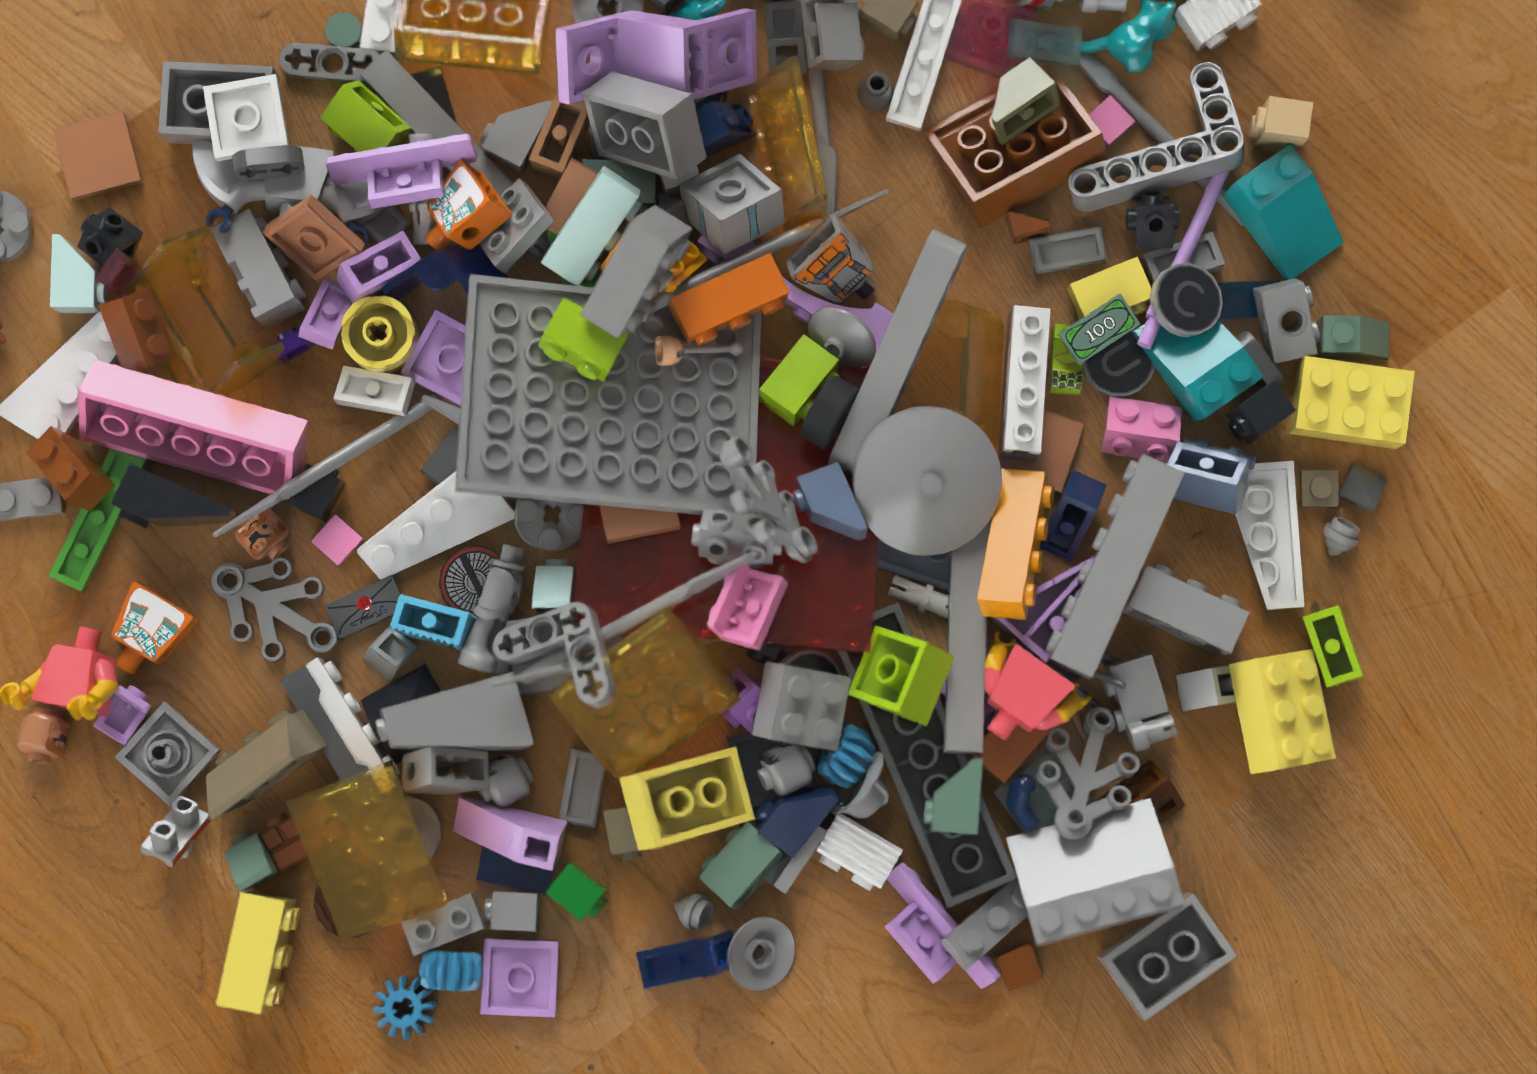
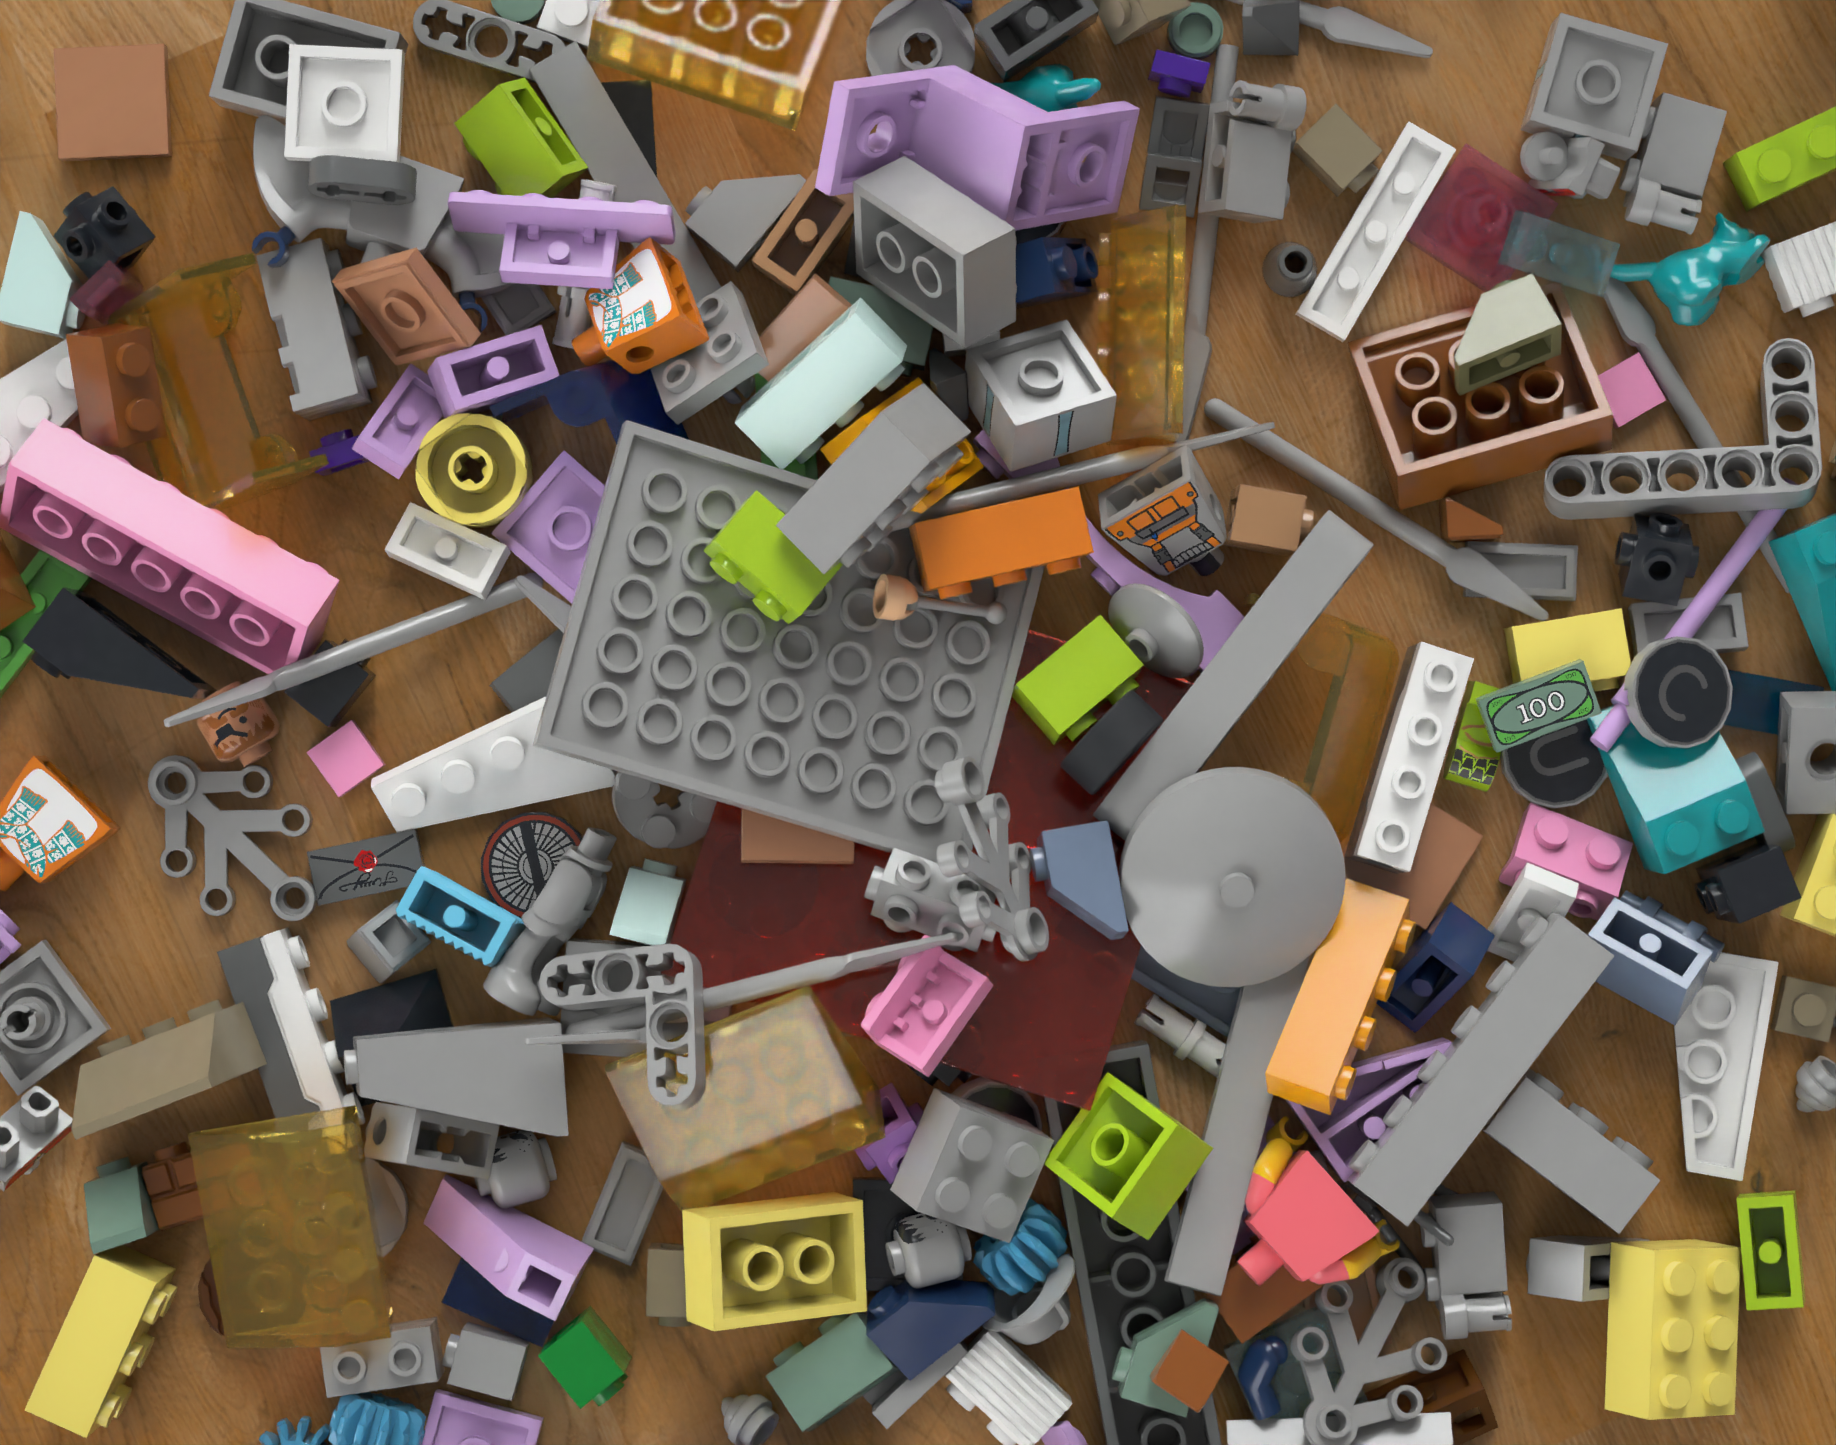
camera: 20 degrees right, 5 degrees up
(895, 251) = (1267, 520): none -> medium nougat brick
(972, 801) = (1189, 1370): none -> dark orange slope
(1030, 254) = (1463, 565): none -> light grey piece
(1124, 448) = (1532, 895): none -> white plate

